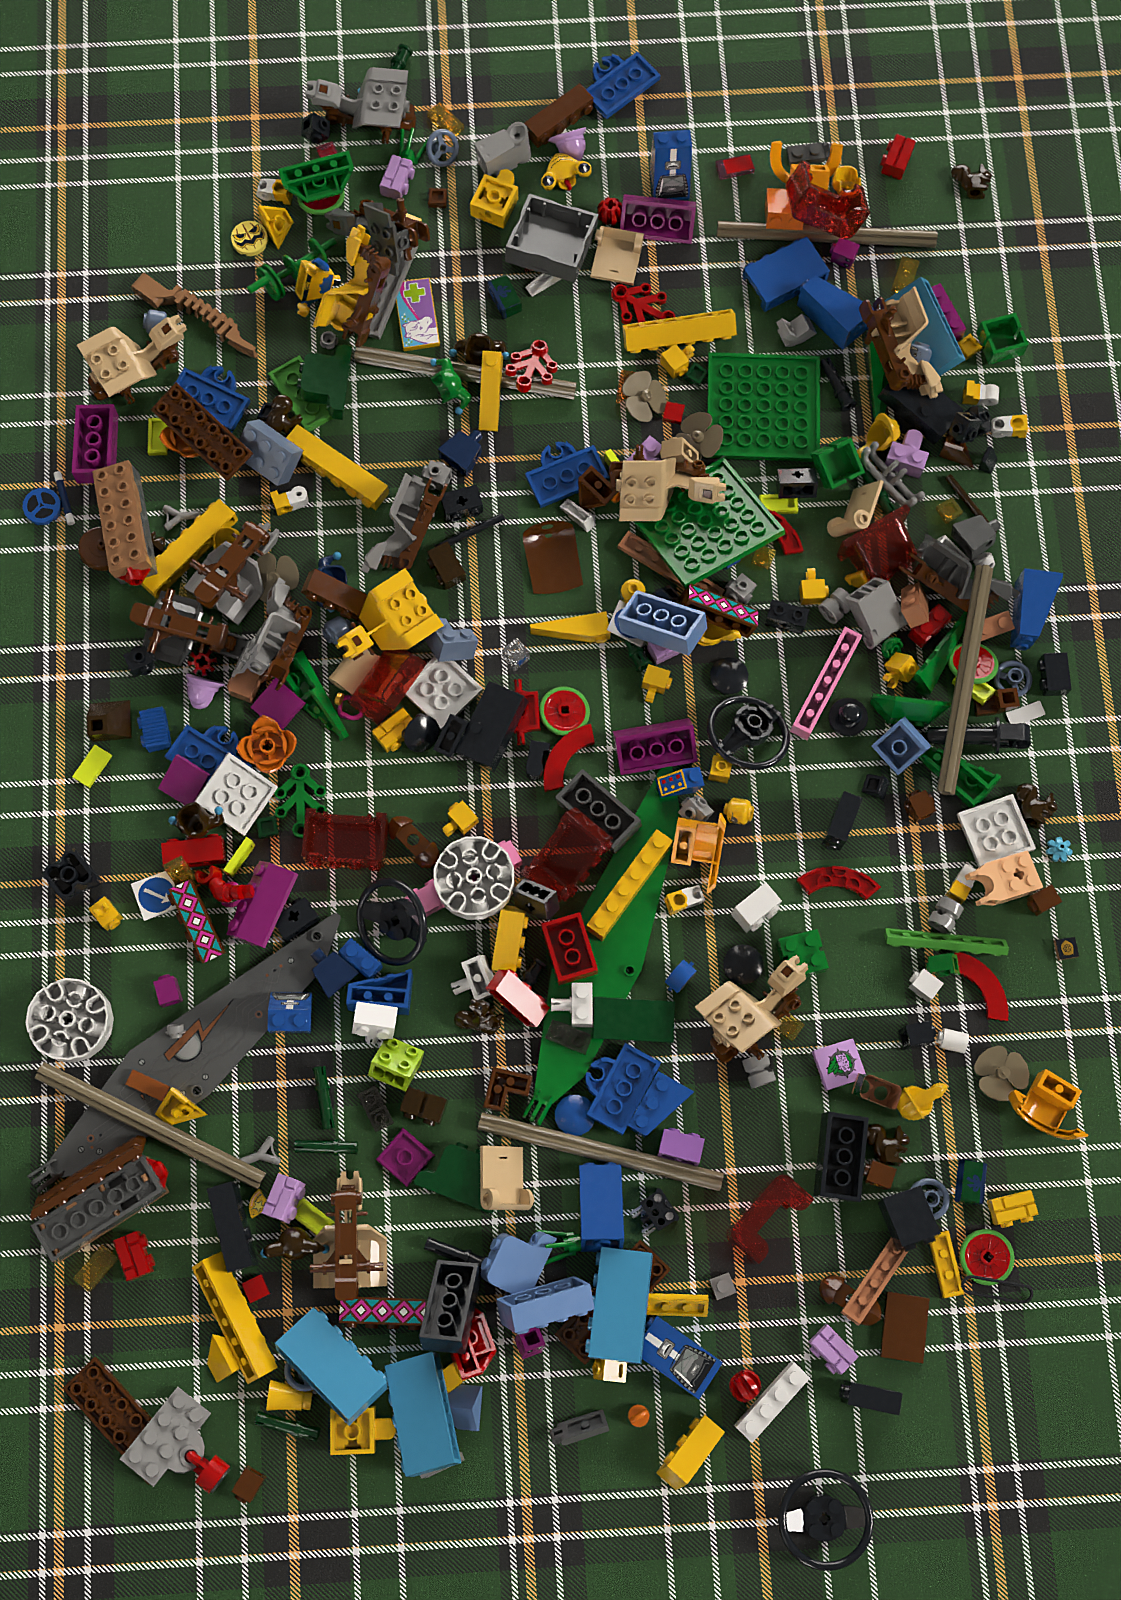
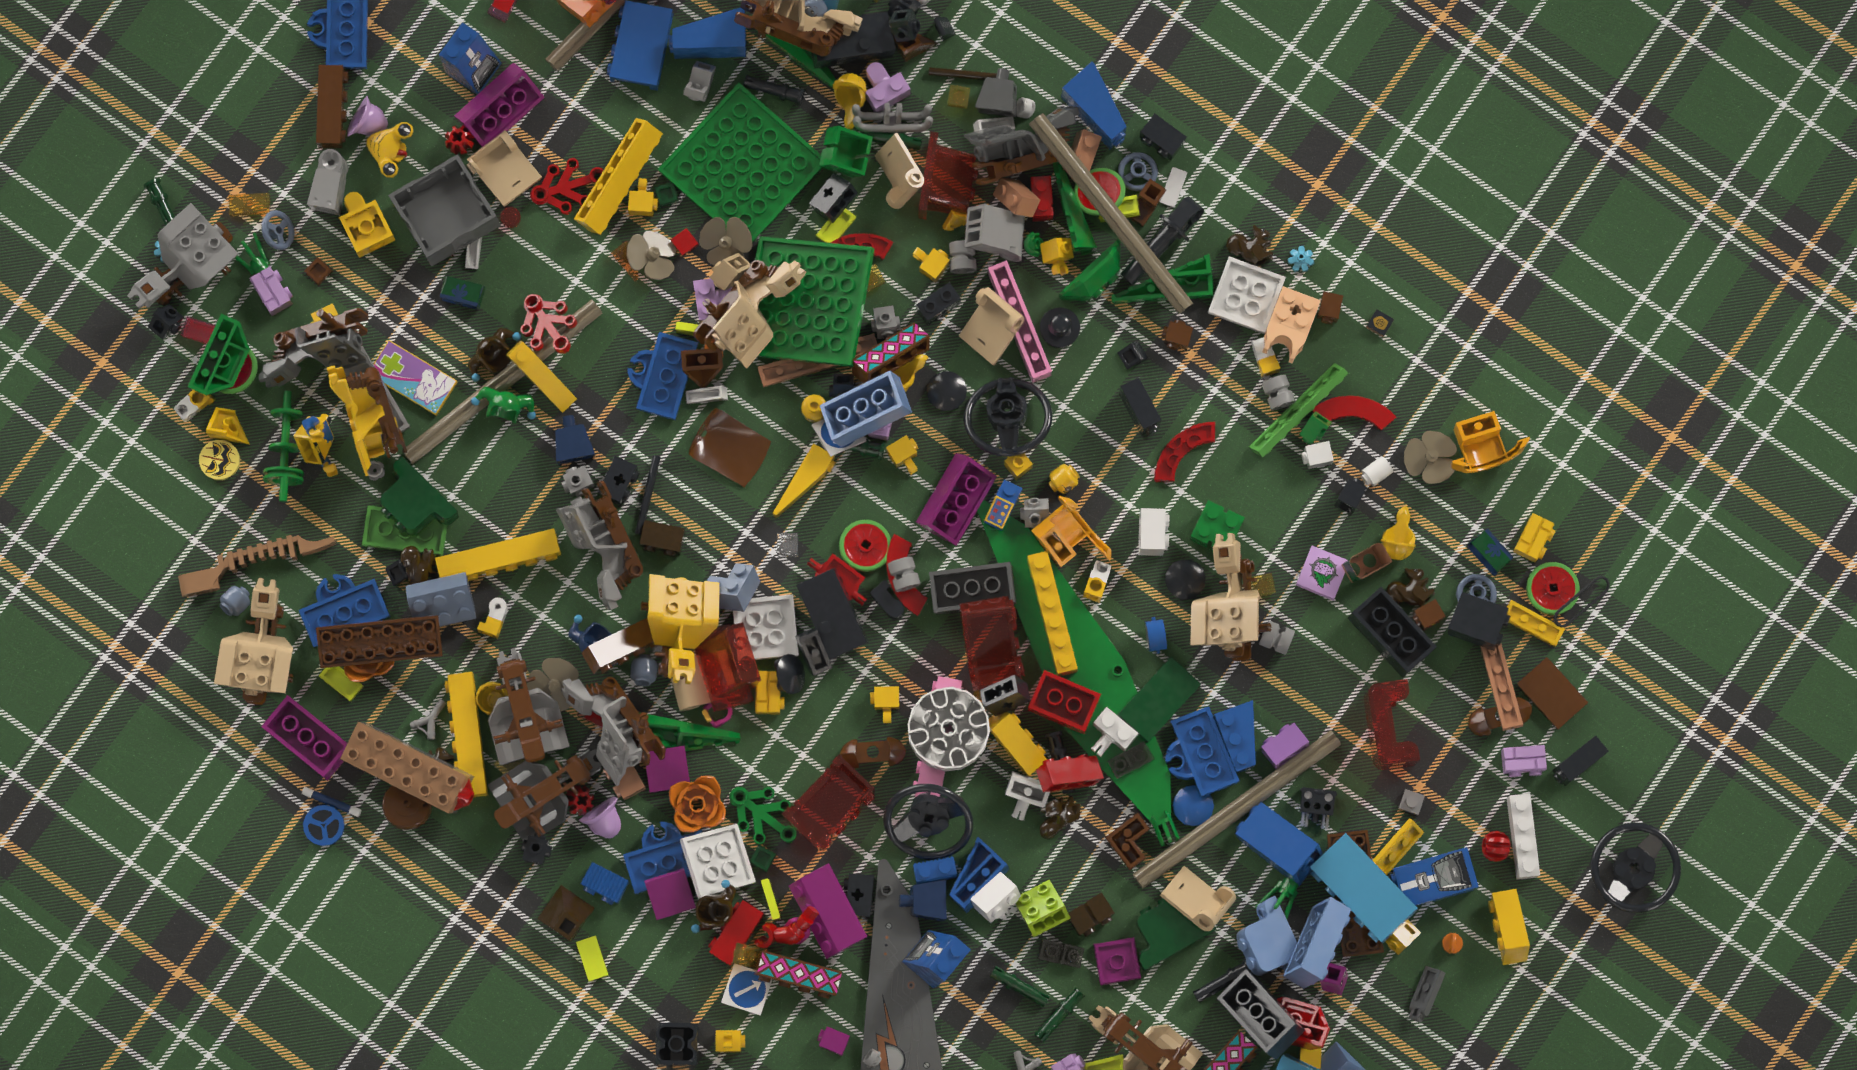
camera: 50 degrees left, 5 degrees up
(566, 751) = (904, 574): none -> light grey wheel
(587, 287) = (510, 217): none -> clear red tile
(805, 664) = (991, 325): none -> tan door
(901, 746) = (1120, 308): medium blue brick -> none

